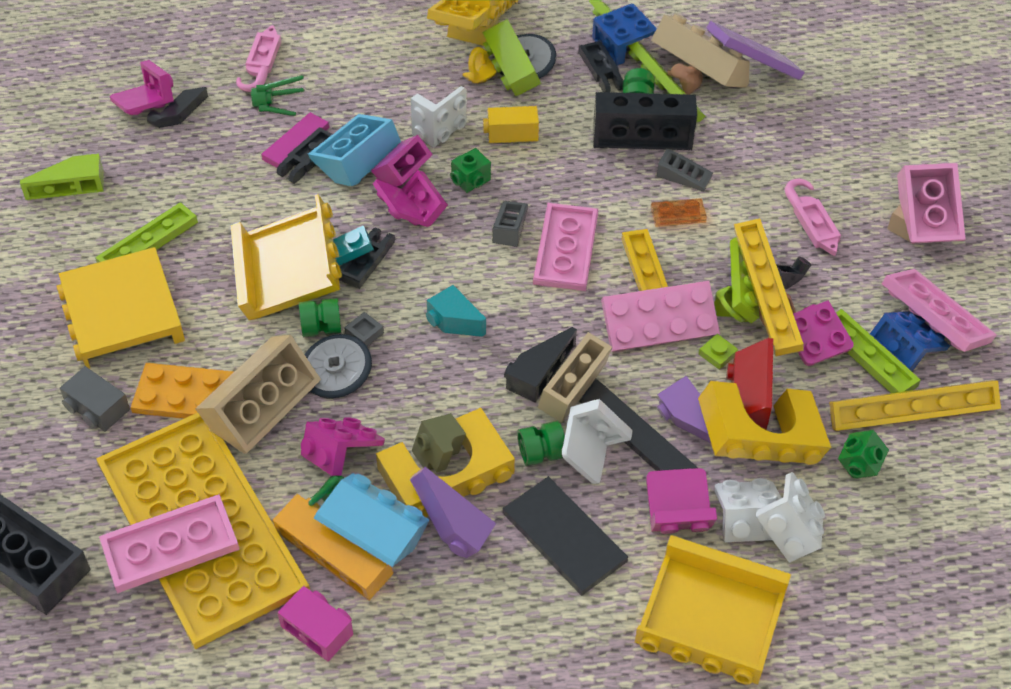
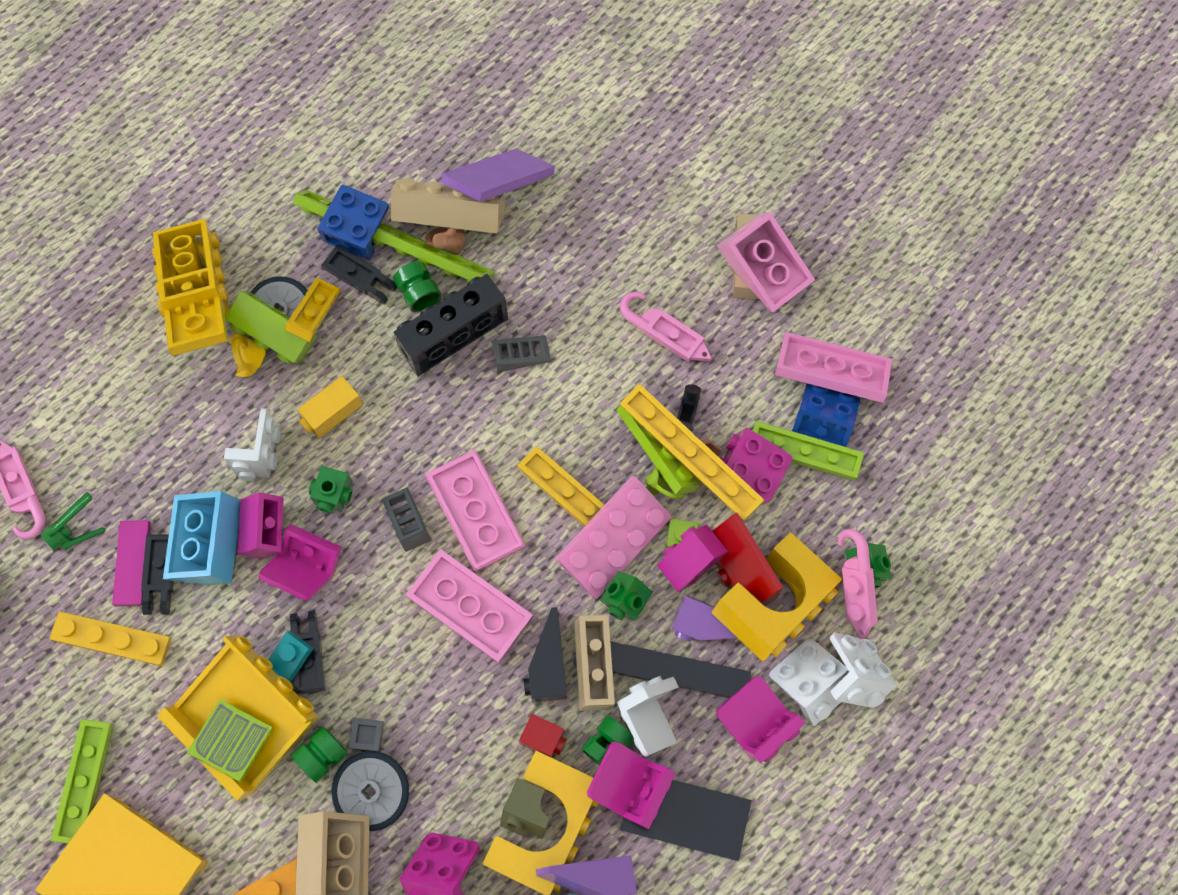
camera: 35 degrees left, 20 degrees up
(242, 174) = (110, 638): none -> yellow plate
(266, 265) = (230, 740): none -> tile
(455, 313) = (434, 660): teal slope -> none
(495, 406) = (543, 736): none -> red brick
(511, 298) = (469, 606): none -> bright pink plate
(534, 470) = (630, 785): none -> dark pink bracket
(549, 61) = (312, 309): none -> yellow tile
(637, 357) = (626, 596): none -> green brick
(678, 212) = (546, 403): clear orange plate -> none
(713, 358) = (691, 557): none -> dark pink brick
(713, 610) = (848, 803): yellow panel -> none
(842, 456) = (859, 585): none -> bright pink plate
(915, 405) = (874, 481): yellow plate -> none

